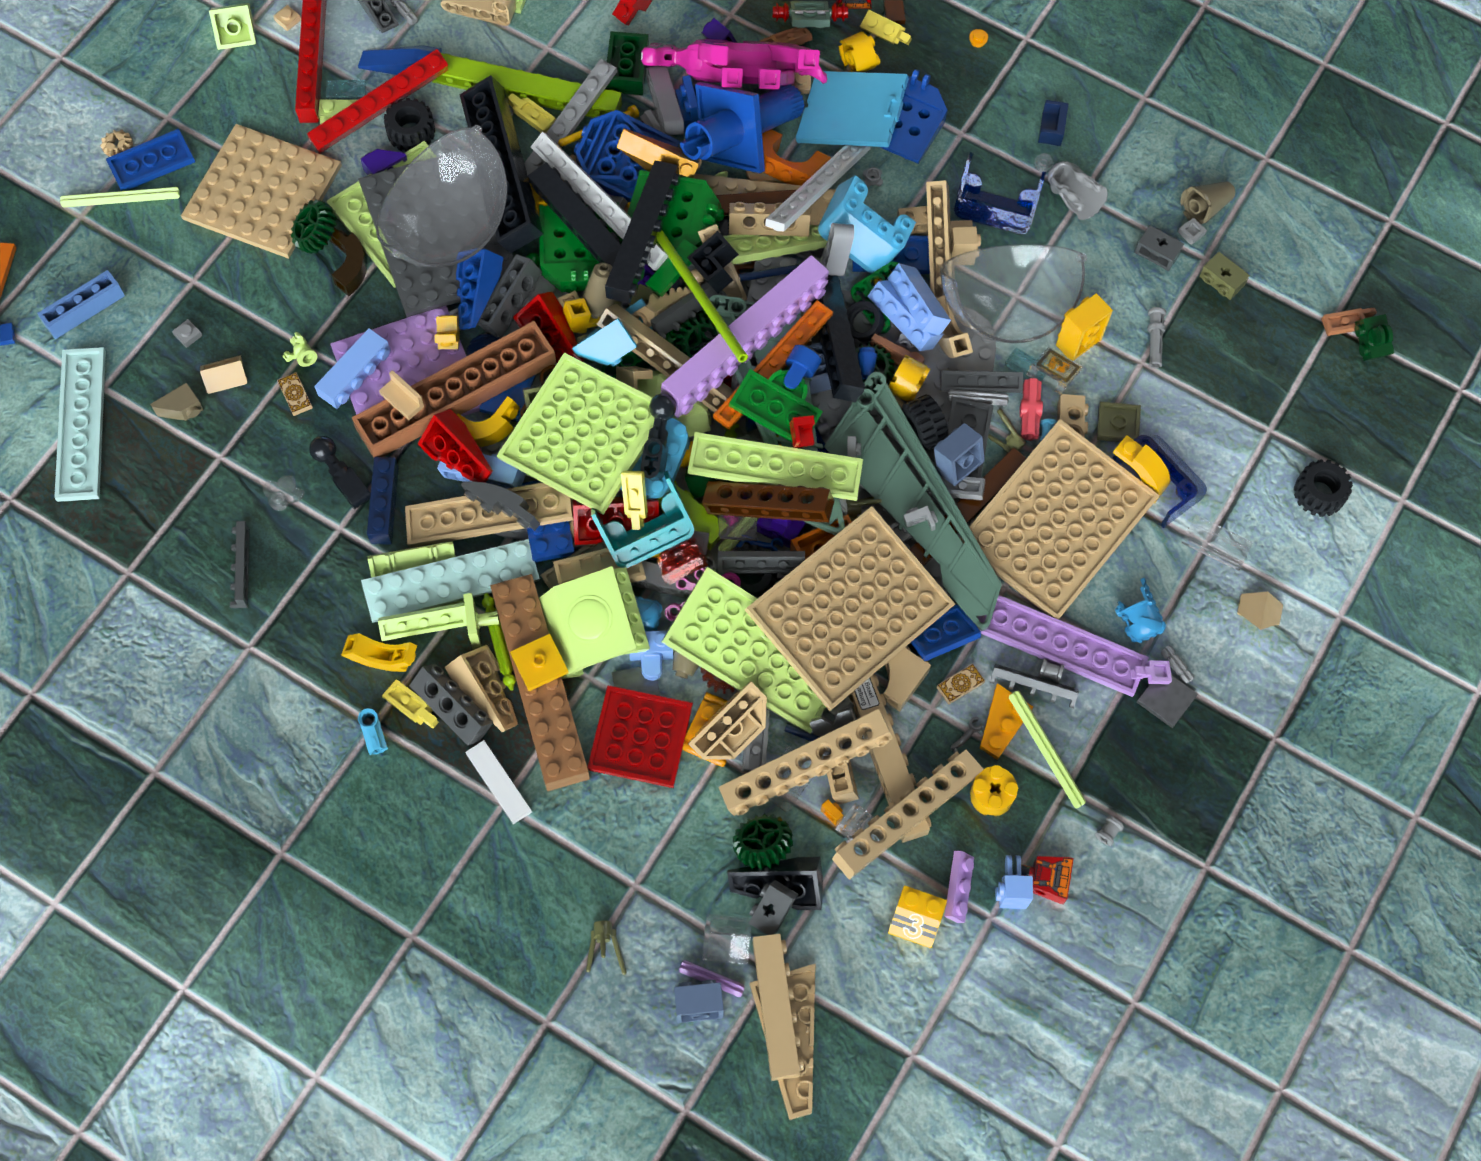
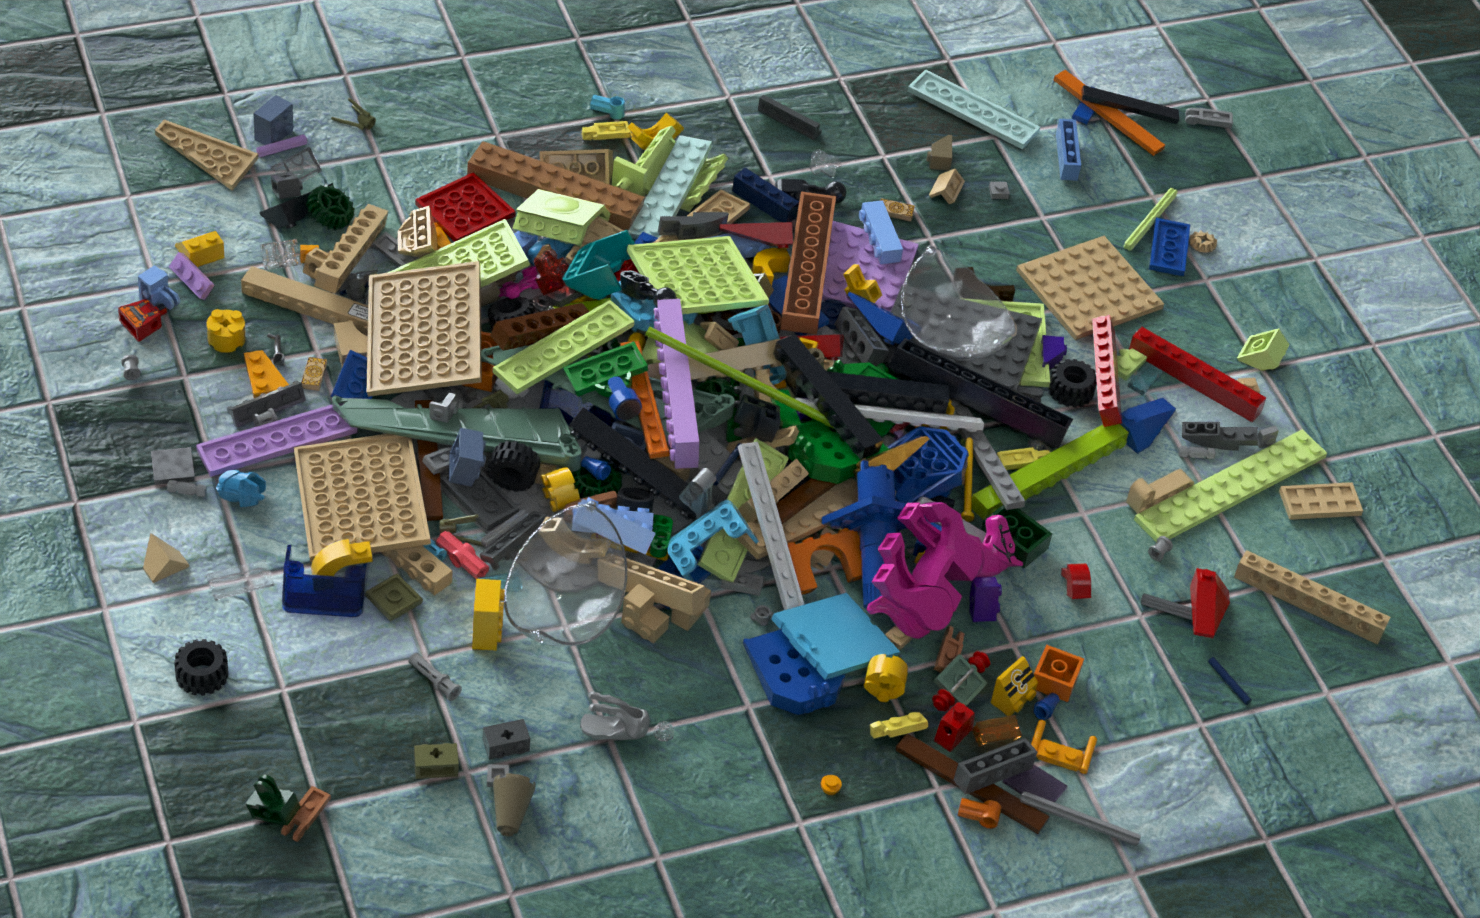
camera: 125 degrees right, 20 degrees down
(302, 351) = (926, 228): yellowish green piece -> none
(313, 226) = (1022, 278): dark green gear -> none
(402, 396) = (824, 221): tan panel -> none
(441, 701) = (585, 141): dark grey brick -> none
(498, 782) = (512, 138): white tile -> none
(539, 662) = (562, 178): yellow plate -> none
(634, 497) = (629, 265): light yellow hinge -> none
(759, 561) = (512, 302): dark grey plate -> none
(776, 1007) = (229, 146): tan brick -> none
(802, 431) = (573, 364): red panel -> none
(853, 447) = (536, 408): light grey plate -> none
(853, 863) = (262, 253): tan brick -> none
(994, 209) = (662, 664): clear blue windscreen -> none
(1047, 749) = (218, 374): yellowish green axle -> none
(1053, 123) = (692, 766): dark blue panel -> none
(1057, 367) = (466, 585): clear flag -> none
(1156, 671) = (196, 461): lavender plate -> none

